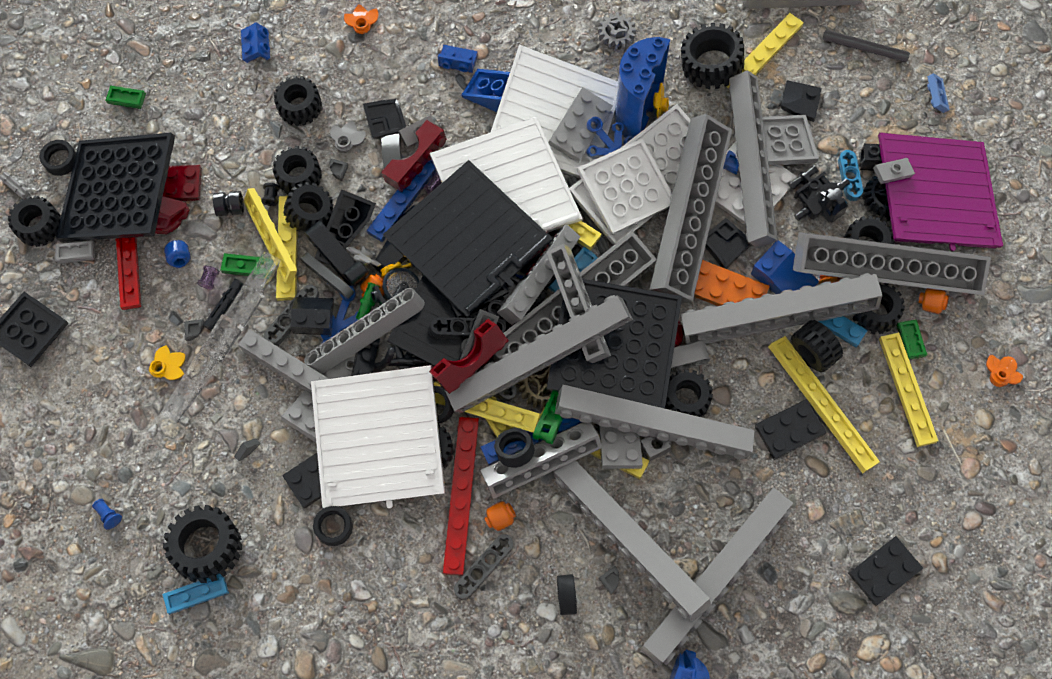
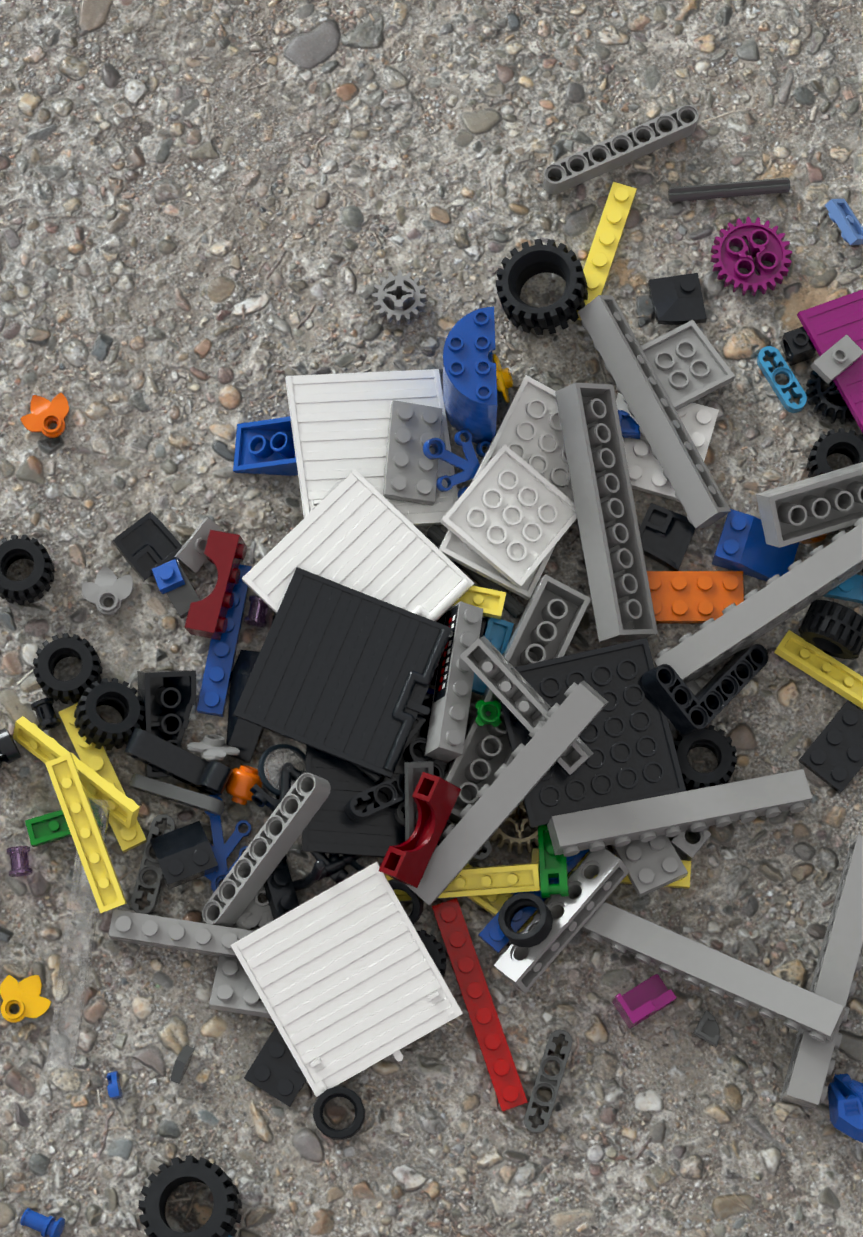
camera: 25 degrees left, 5 degrees up
(193, 329) = (32, 937): dark grey tile -> none
(196, 445) = (114, 1087): none -> blue tile
(223, 305) = (57, 889): black pin -> none
(254, 273) = (85, 833): none -> light yellow plate
(338, 168) = (117, 640): dark grey tile -> none
(366, 302) = (247, 809): green pin -> none
(386, 269) = (256, 751): yellow plate -> none
(387, 140) = (168, 576): none -> blue plate
(457, 58) = (204, 421): blue bracket -> none
(500, 516) = (540, 1010): orange head -> none
(549, 296) = (493, 707): none -> green plate
(566, 594) = (666, 1072): black tyre -> none
(574, 541) = (643, 1001): none -> magenta panel
(691, 352) = (695, 712): none -> black beam
(819, 195) = (756, 425): black piece -> none
(846, 89) = (772, 250): none -> magenta gear

